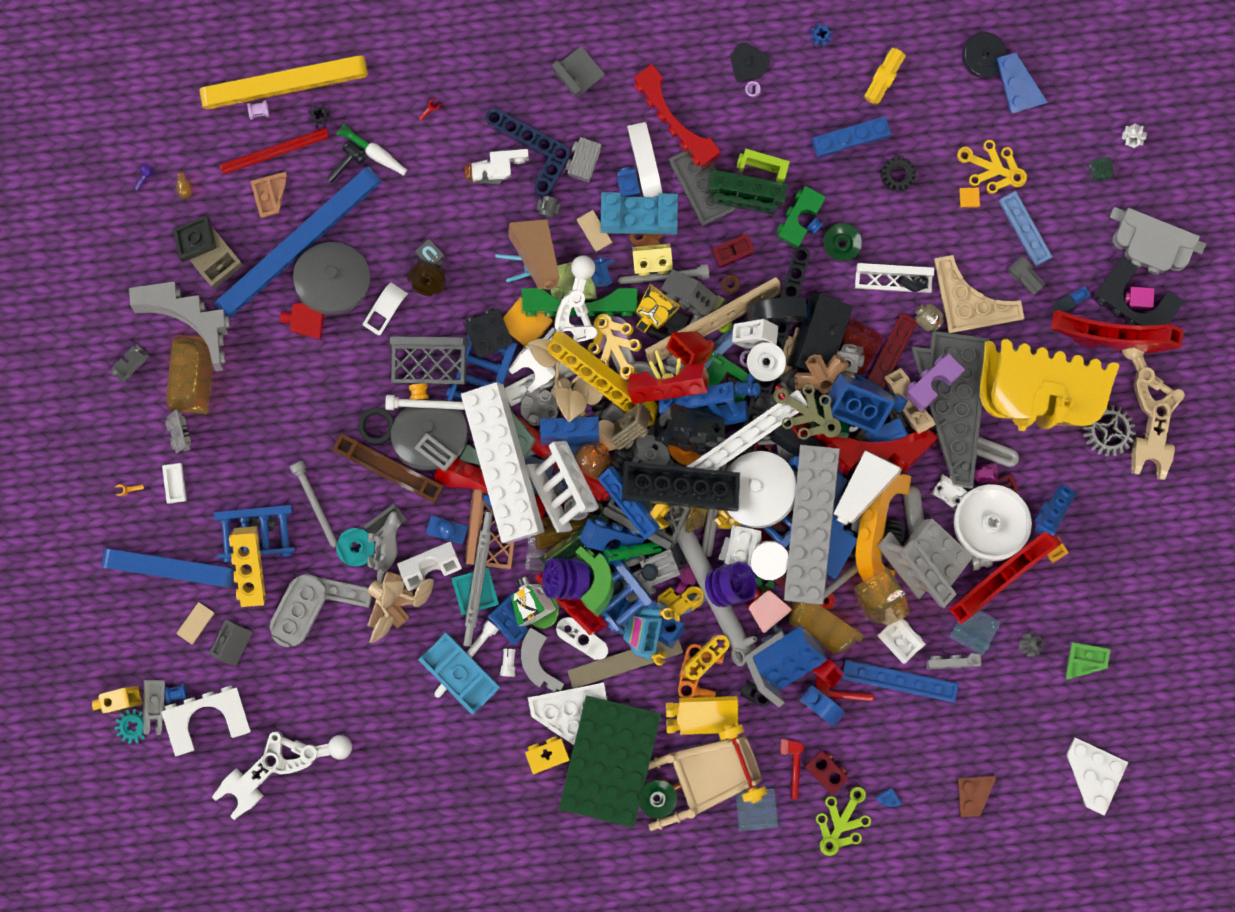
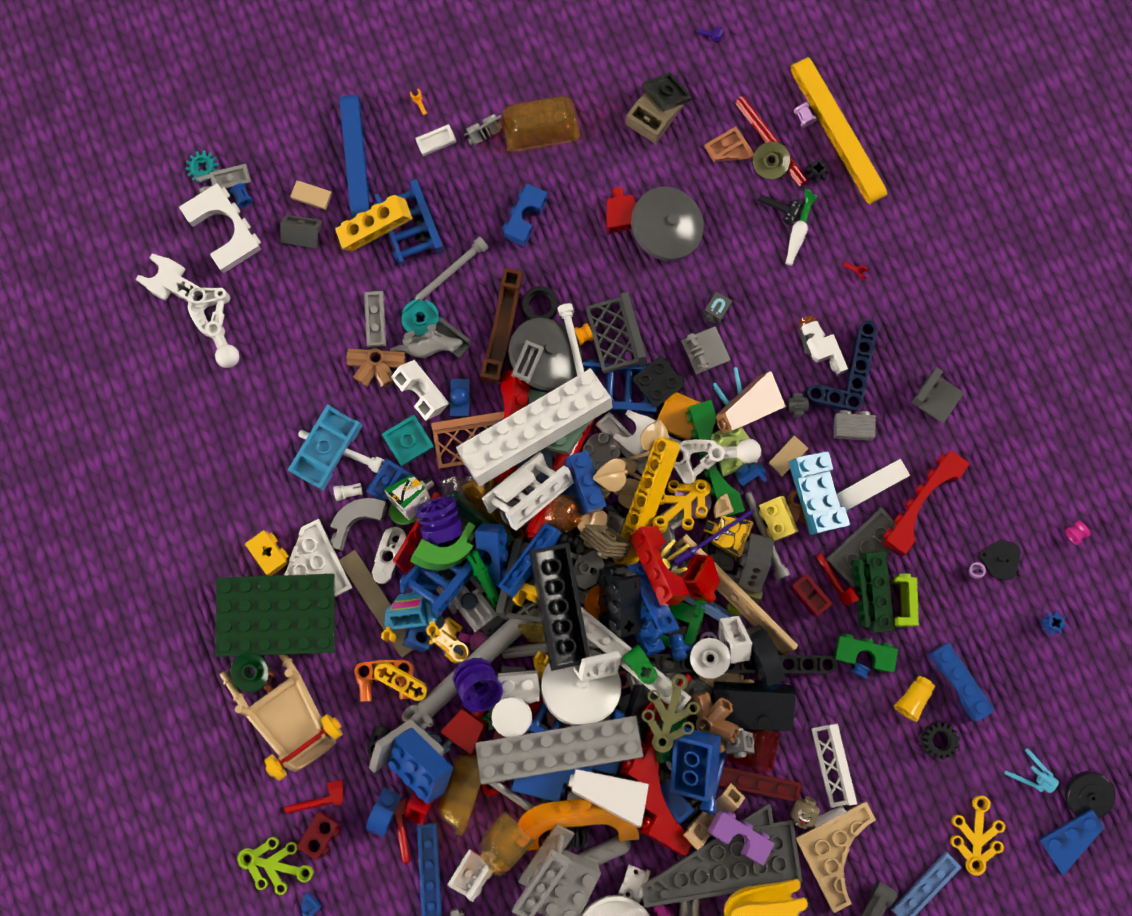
camera: 75 degrees right, 5 degrees down
(117, 700) = (218, 141): yellow torso -> none
(124, 370) = (527, 66): dark grey hinge -> none
(168, 300) = (599, 107): light grey arch -> none
(183, 186) = (712, 70): clear yellow cylinder -> none
(267, 404) = (530, 200): none -> blue arch
(298, 242) = (693, 185): blue beam -> none
(298, 610) = (346, 282): light grey tile -> none
(304, 158) = (778, 167): none -> olive dish
(386, 305) = (657, 282): white piece -> none
(386, 595) = (379, 354): tan plant -> none
(435, 275) = (700, 304): dark brown plate -> none
(468, 278) = (705, 350): none -> light grey hinge
(478, 577) = (417, 439): light grey axle -> none
(553, 498) = (514, 484): none -> white tile
(627, 308) = (722, 506): none -> tan tile
(628, 182) = (846, 474): blue bracket -> none
(662, 349) = (691, 551): none -> dark purple piece
(702, 714) = (344, 693): yellow tile -> none
(734, 279) = (783, 602): reddish brown plate -> none
(744, 217) = (846, 597): none -> red piece
(746, 466) = (598, 666): none -> white bracket
(752, 427) = (639, 663): none -> green piece
(758, 814) = (258, 780): clear light blue tile -> none
(847, 234) = (863, 702): dark green dish -> none
(854, 184) = (915, 698): none -> yellow plant
(884, 76) = (1033, 698): yellow piece -> none
(915, 285) = (832, 788): black arm -> none
(938, 295) = (830, 815): none -> white sticker
(960, 90) = (1045, 779): none -> medium azure plant
(969, 197) = (939, 820): light orange tile -> none

